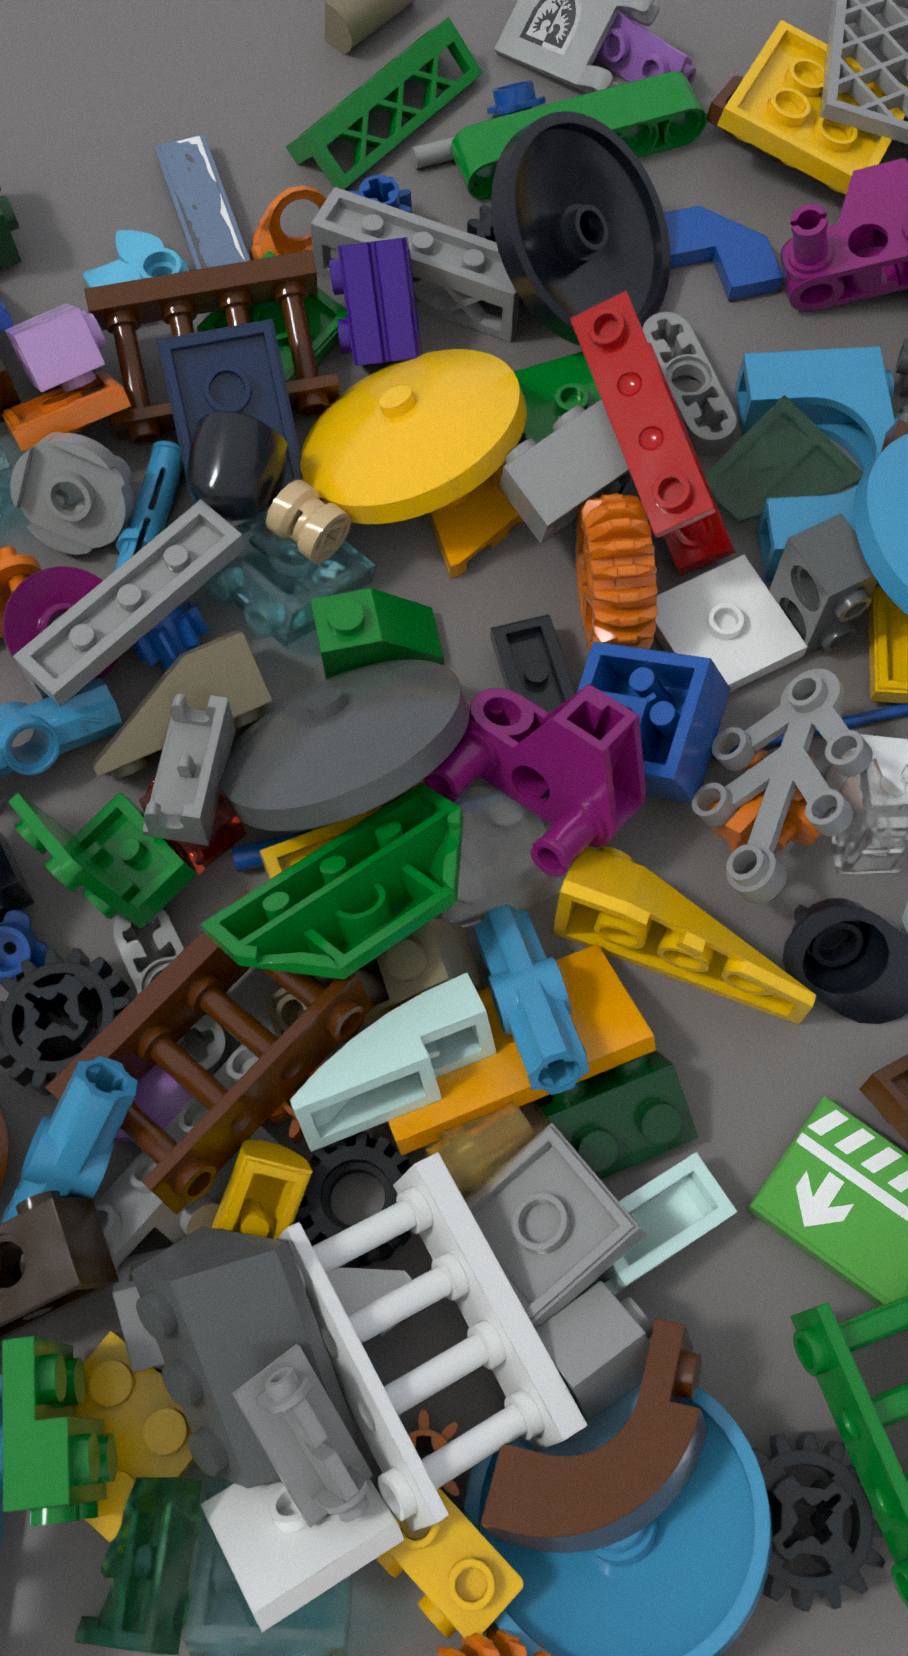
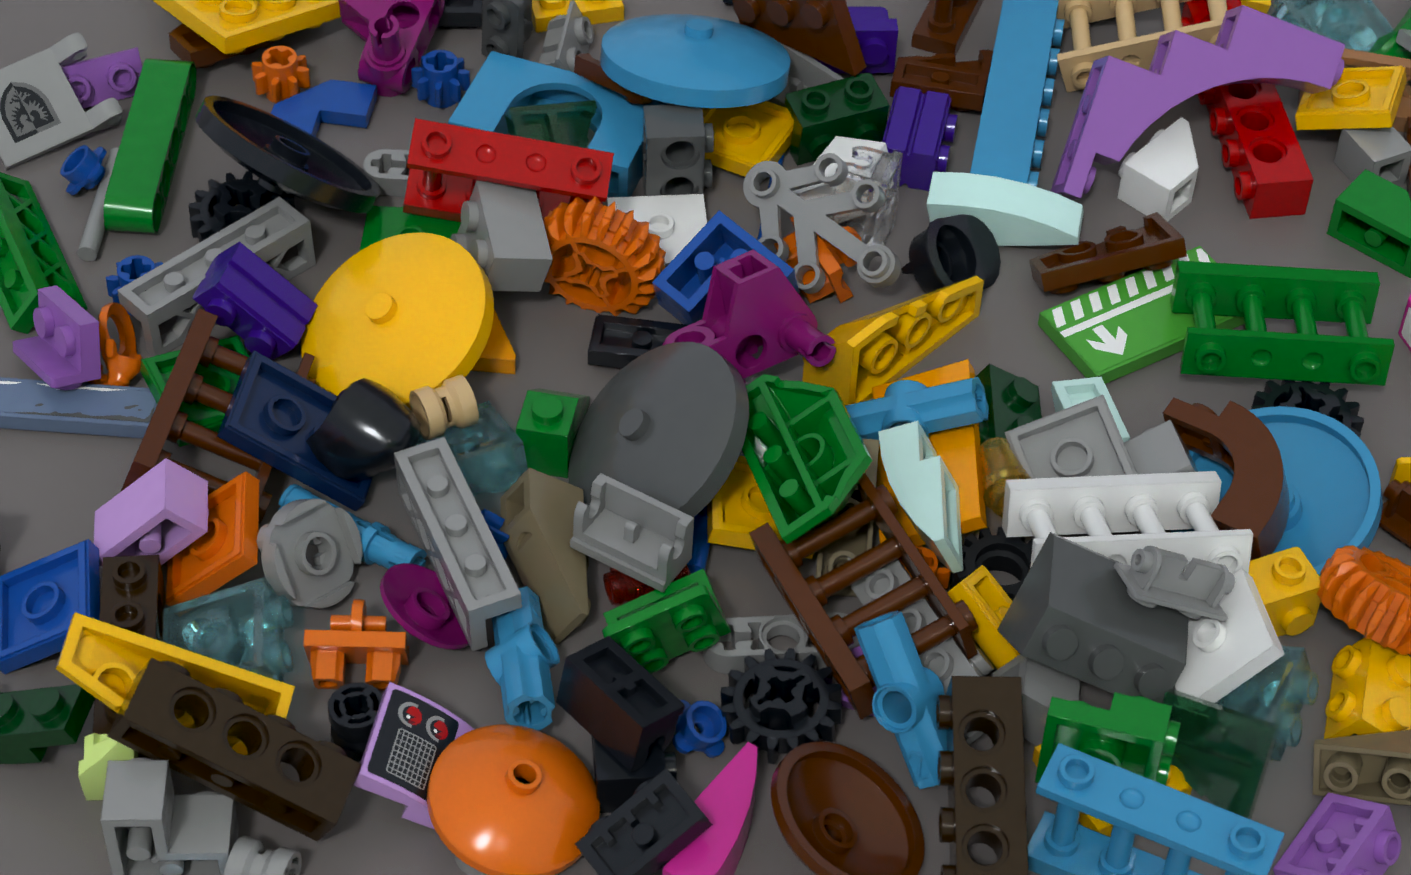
camera: 70 degrees left, 20 degrees down
(139, 258) = (79, 467): medium azure plate -> none
(247, 191) = (66, 342): none -> medium lavender bracket
(742, 190) = (280, 73): none -> orange gear
(826, 322) = (440, 78): none -> blue gear

